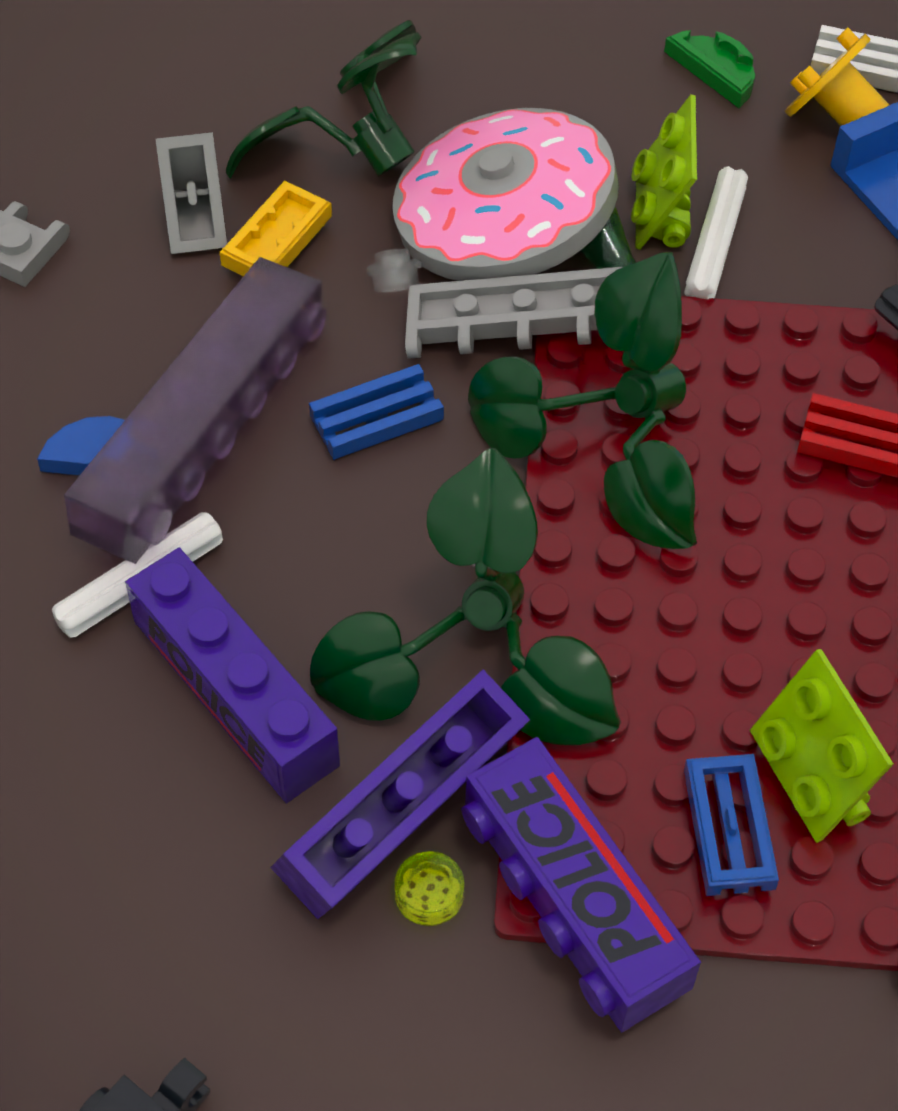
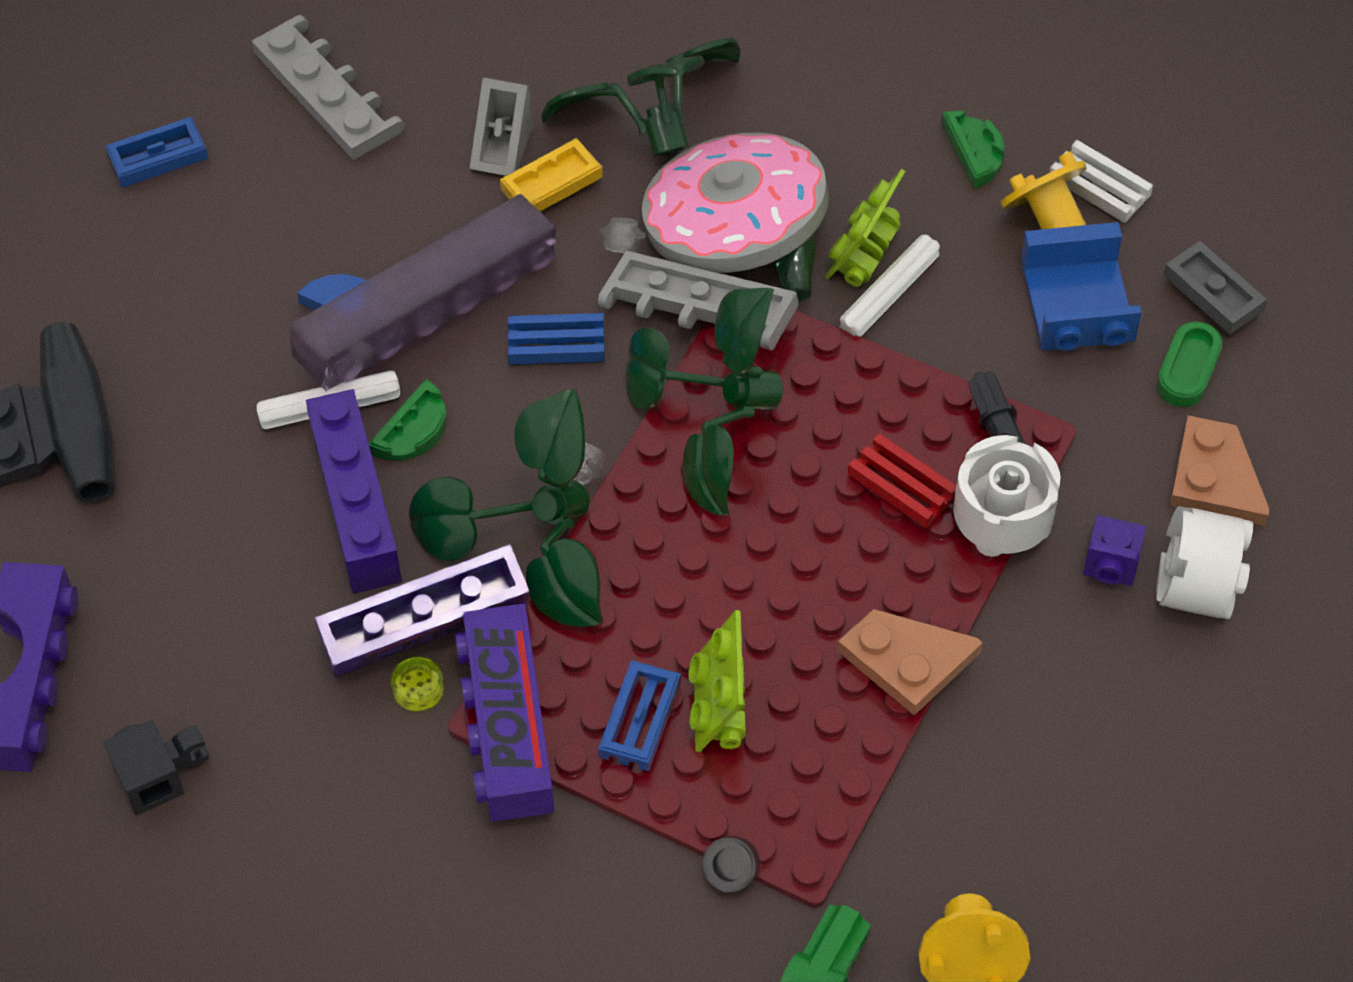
camera: 25 degrees right, 0 degrees up
(260, 568) = (413, 427): none -> green tile

